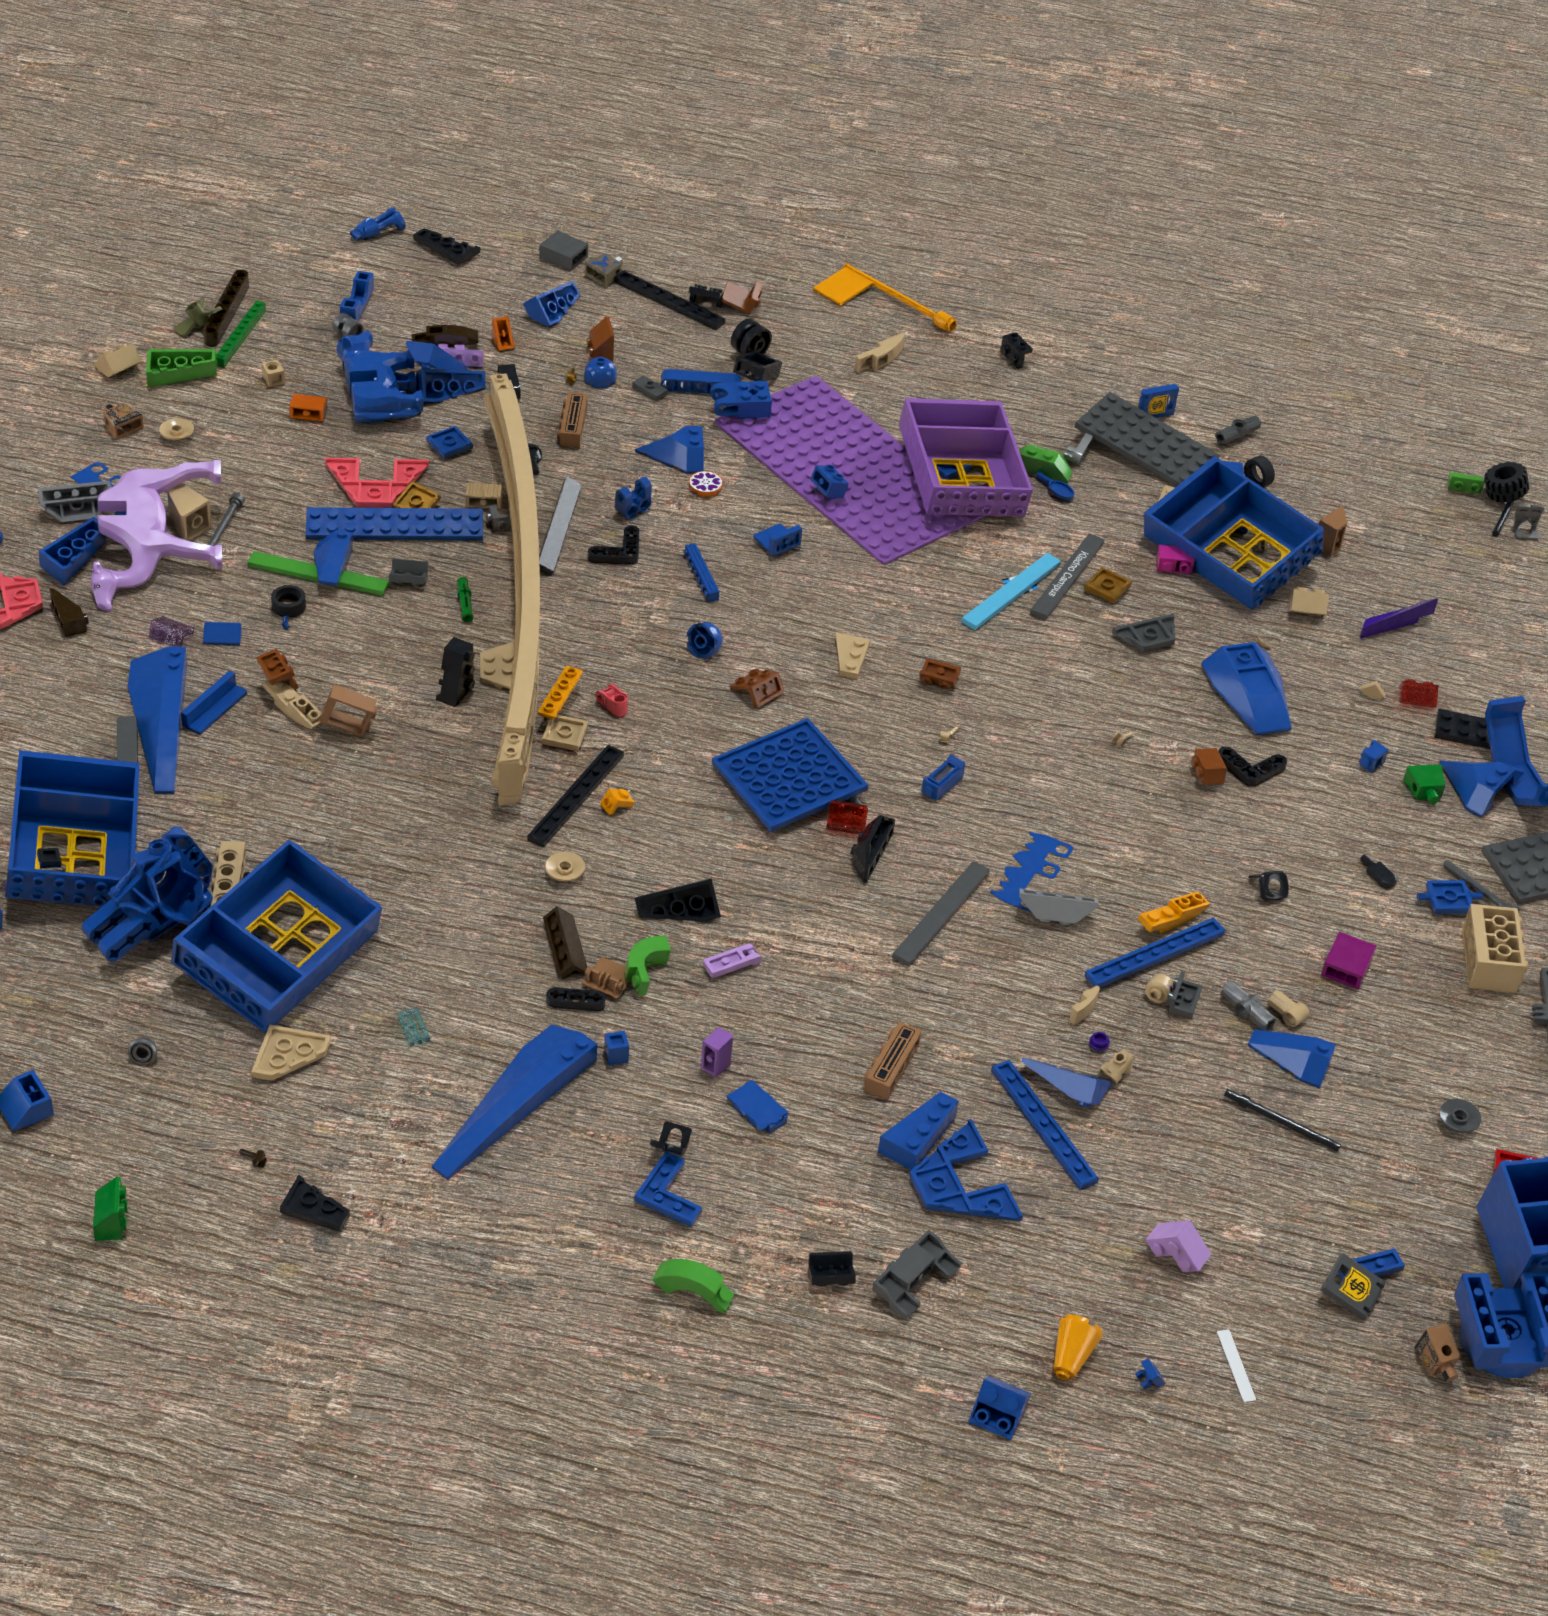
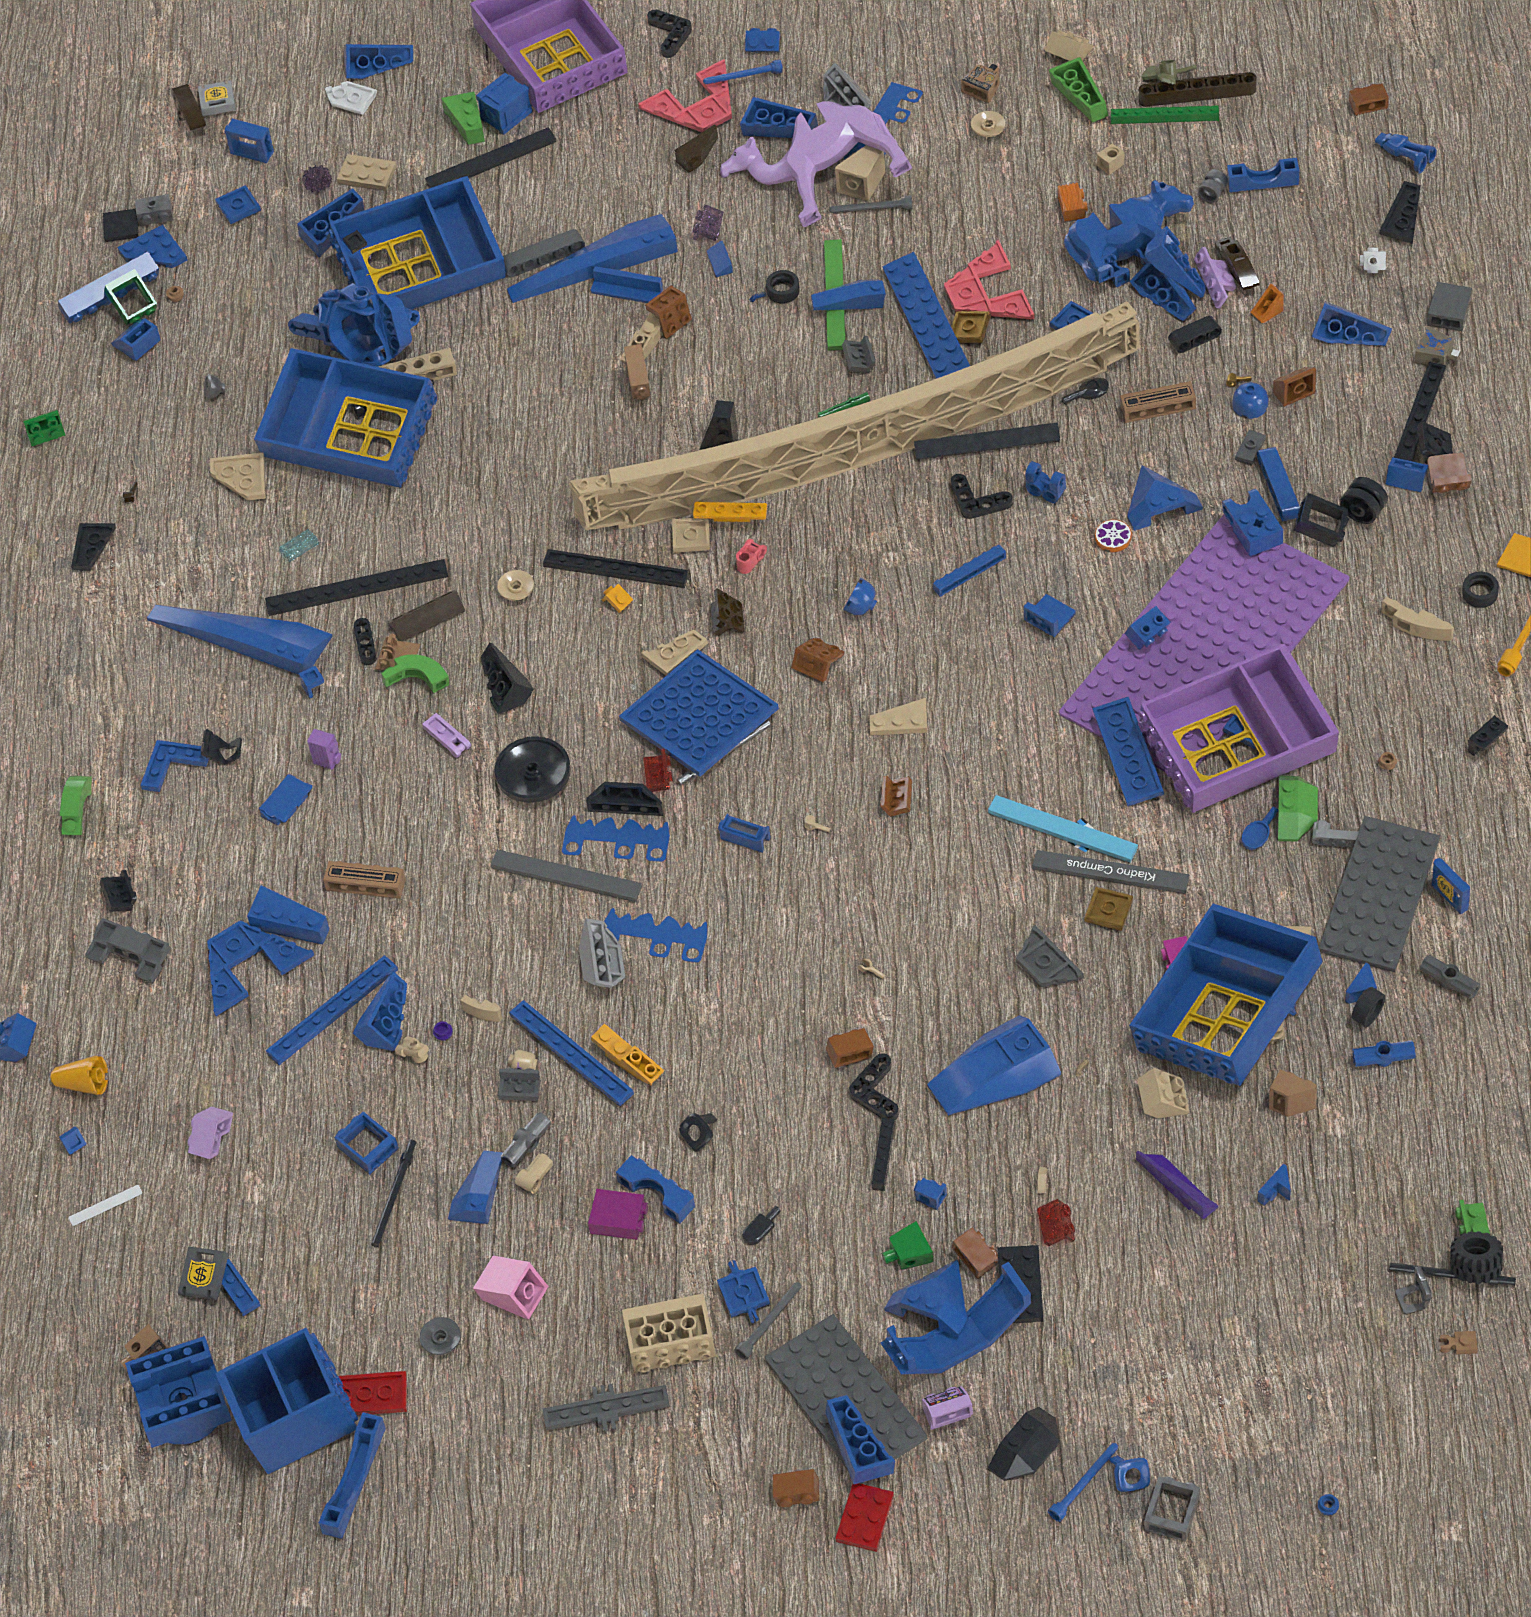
camera: 85 degrees right, 10 degrees up
(306, 227) = (1368, 99): none -> dark orange brick
(491, 270) = (1379, 264): none -> white brick
(497, 994) = (356, 587): none -> black plate
(677, 731) = (726, 613): none -> dark brown bracket
(706, 776) = (670, 655): none -> tan wing
(729, 315) = (1406, 474): none -> blue panel
(810, 901) = (532, 769): none -> black dish
(862, 322) = (1480, 601): none -> black tyre
(907, 862) = (628, 835): none -> blue piece
(950, 529) = (1128, 751): none -> blue plate
(1014, 405) = (1387, 757): none -> medium nougat plate
(1233, 1112) = (378, 1154): none -> blue window
(1301, 480) = (1394, 1052): none -> blue piece
(1323, 777) = (883, 1154): none -> black piece
(1343, 917) = (636, 1175): none -> blue arch
(1411, 566) = (1276, 1184): none -> blue slope
(1414, 1049) = (511, 1286): none -> bright pink slope
(1442, 743) = (975, 1252): none -> dark orange brick

